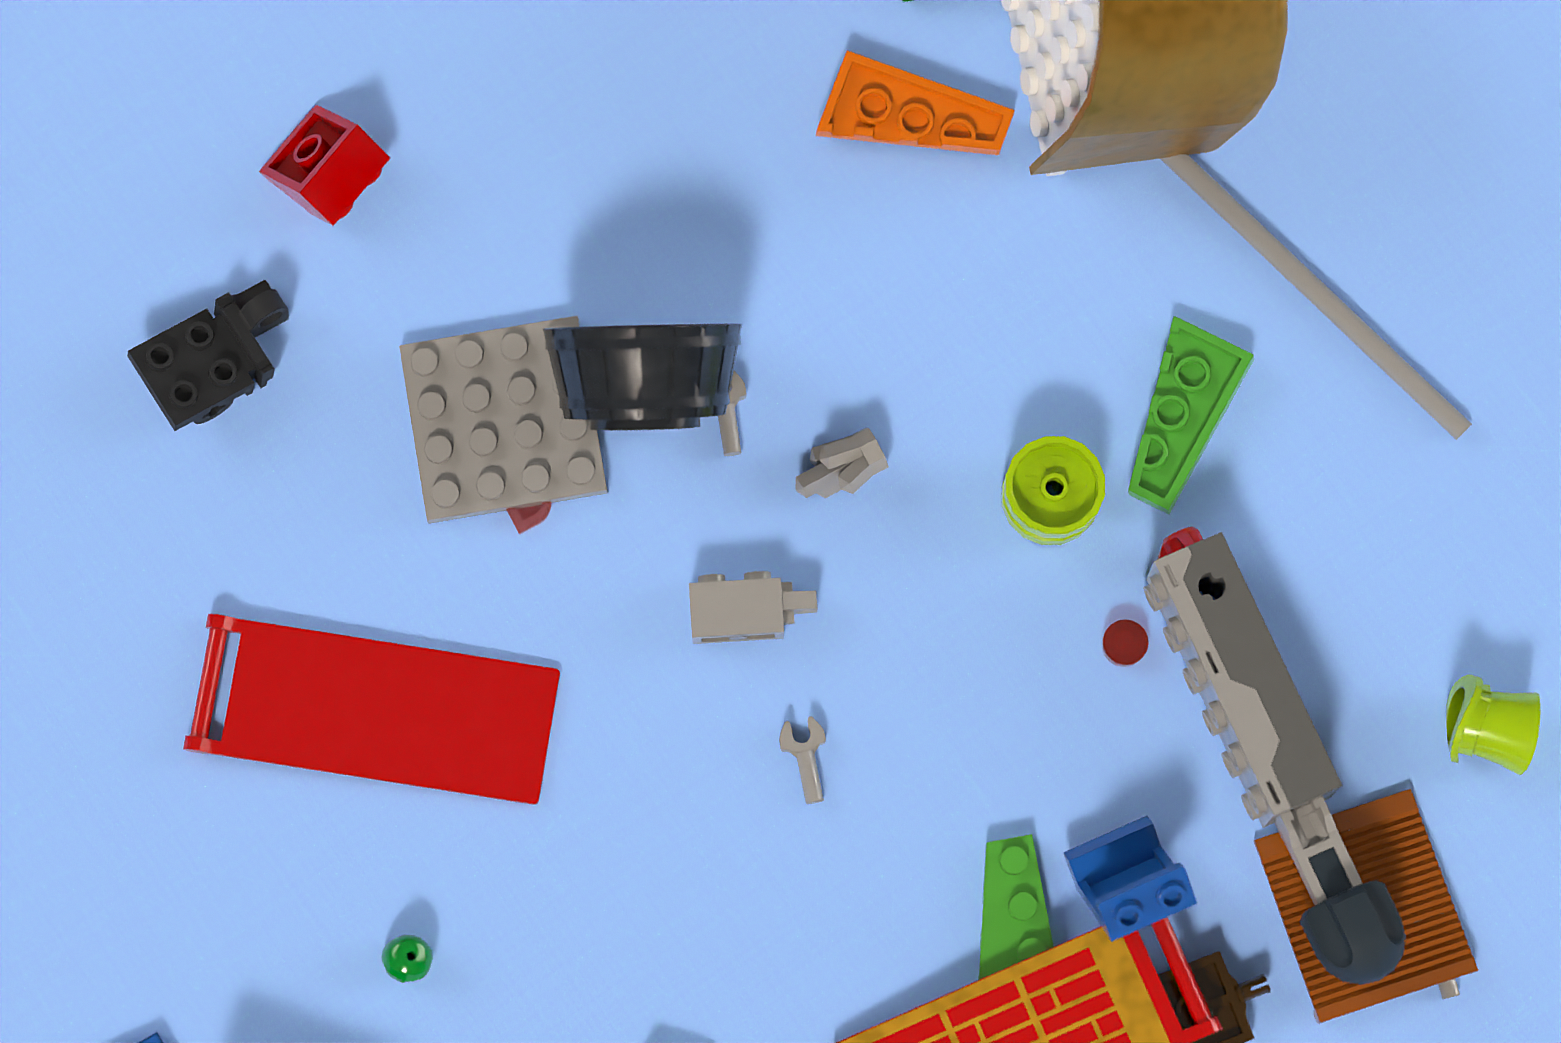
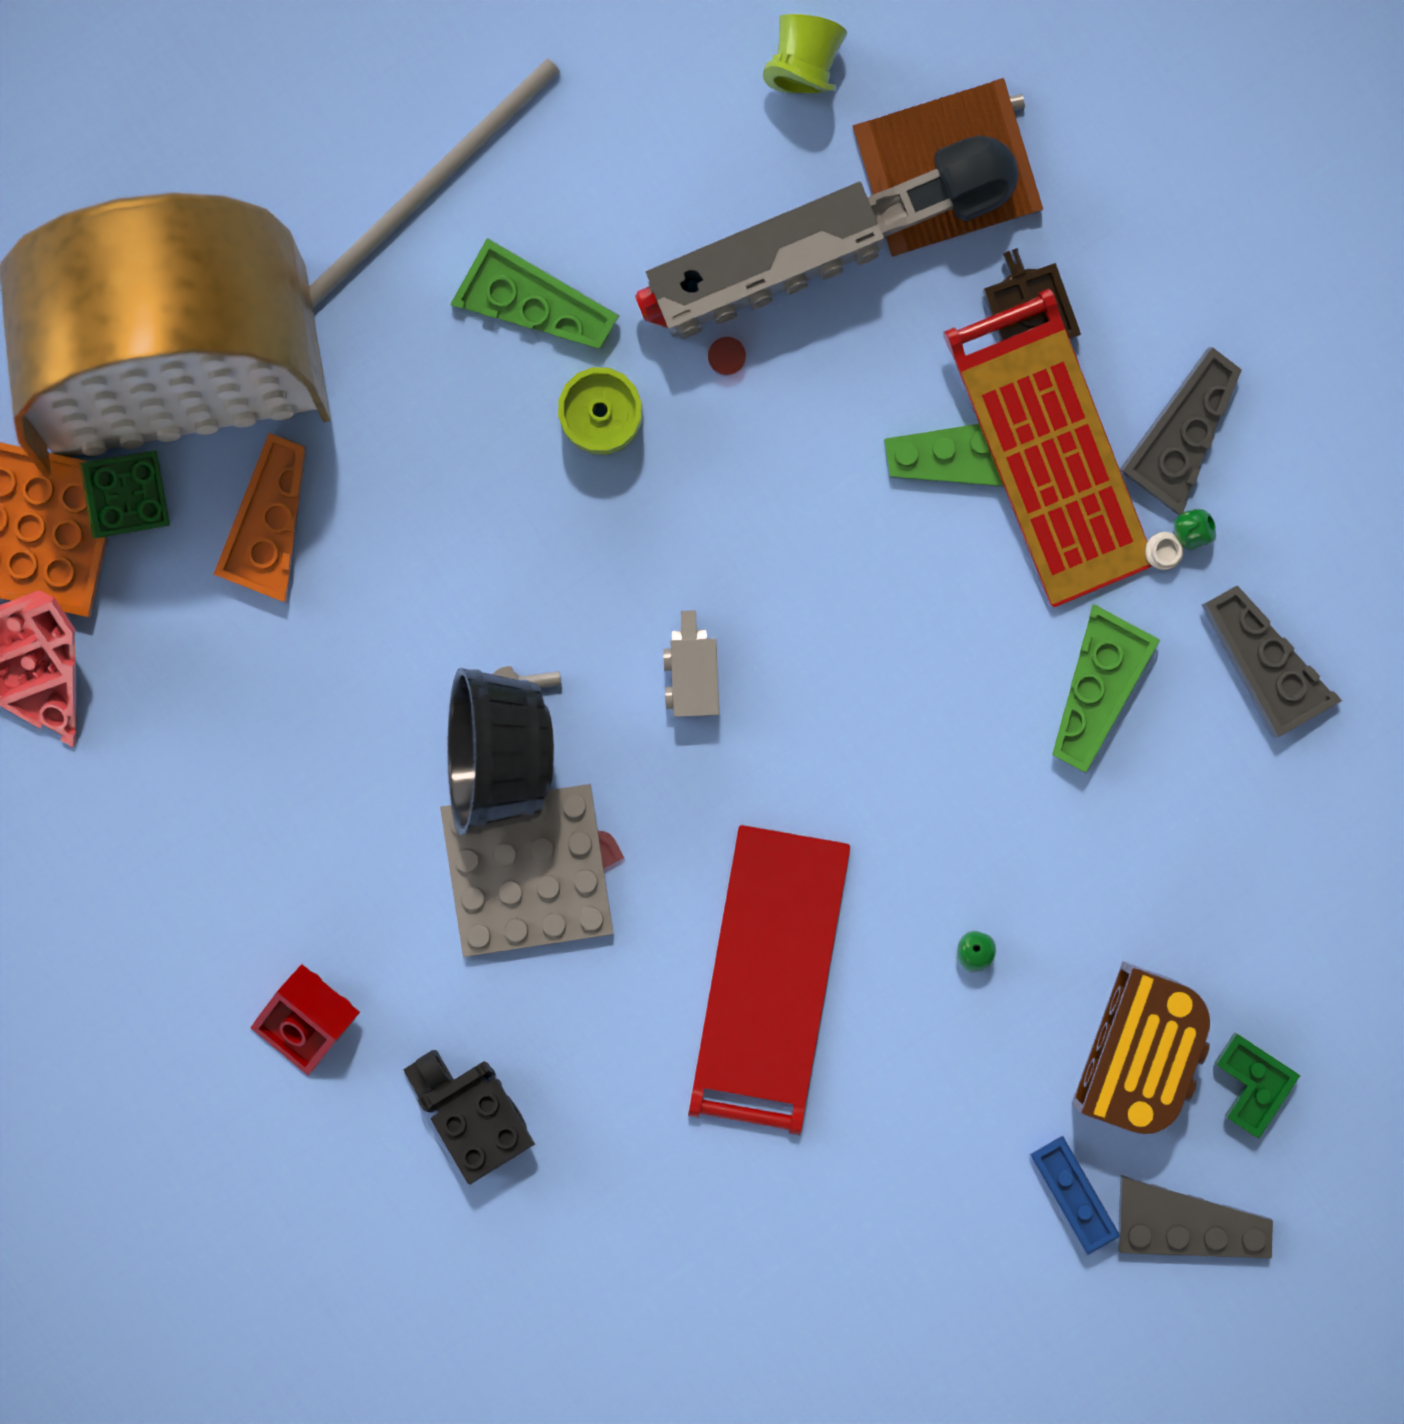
camera: 90 degrees left, 10 degrees up
(805, 757) = (817, 622): light grey bar -> none
(842, 465) = (573, 586): light grey rock -> none
(1129, 879) = (927, 359): blue panel -> none

